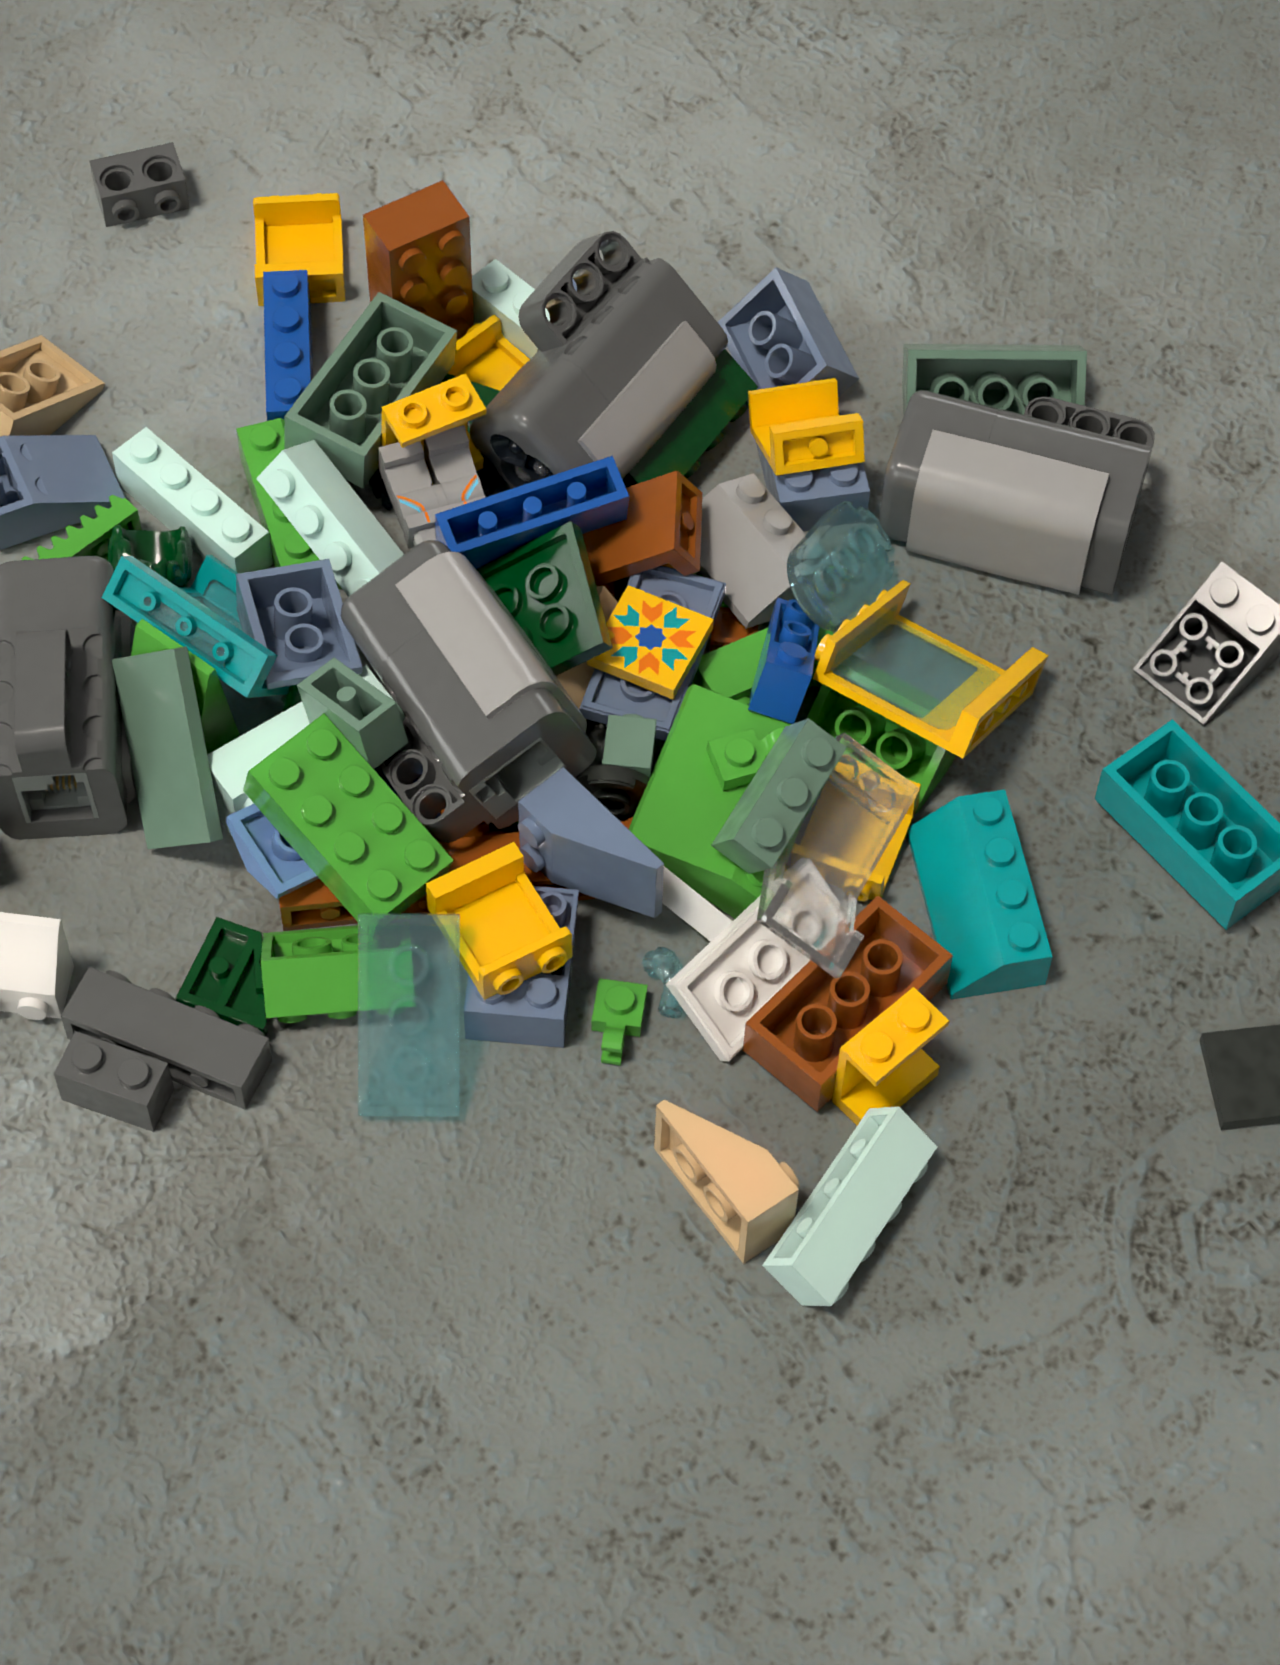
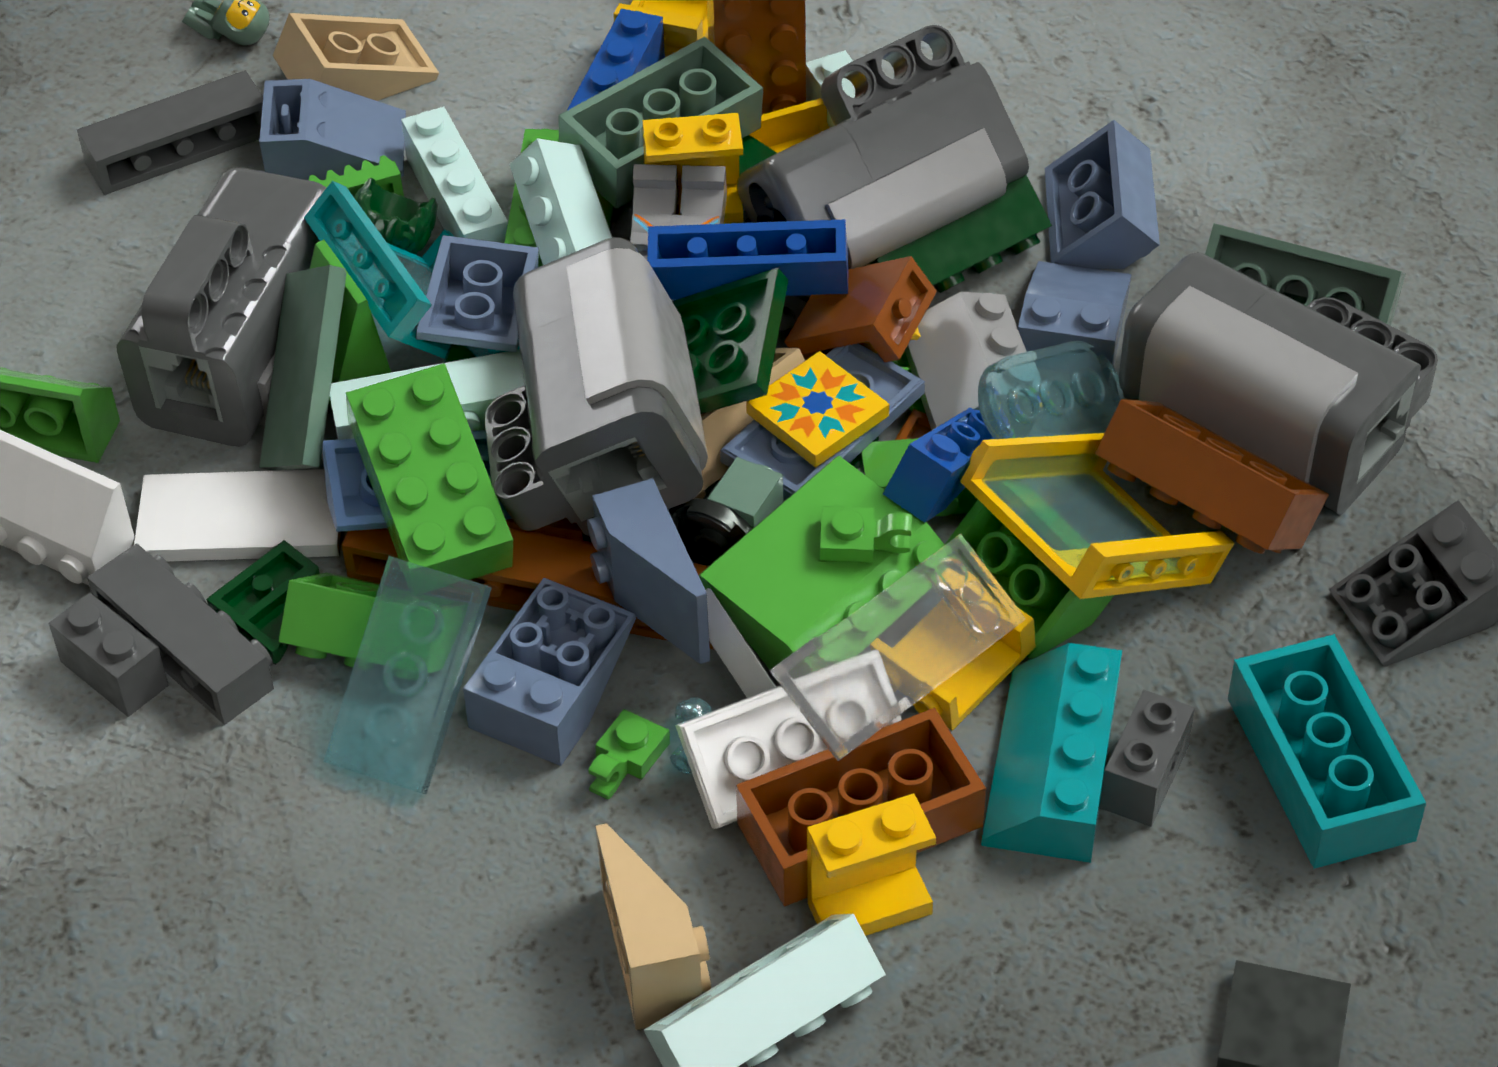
camera: 25 degrees right, 10 degrees down
(154, 903) = (235, 515): none -> white tile
(357, 709) = (479, 374): sand green brick -> none
(502, 922) = (534, 610): yellow panel -> none
(779, 796) = (862, 571): sand green brick -> none
(802, 427) = (1075, 265): yellow panel -> none
(1004, 599) = (1210, 476): none -> dark orange brick
(1060, 875) = (1147, 758): none -> dark grey brick

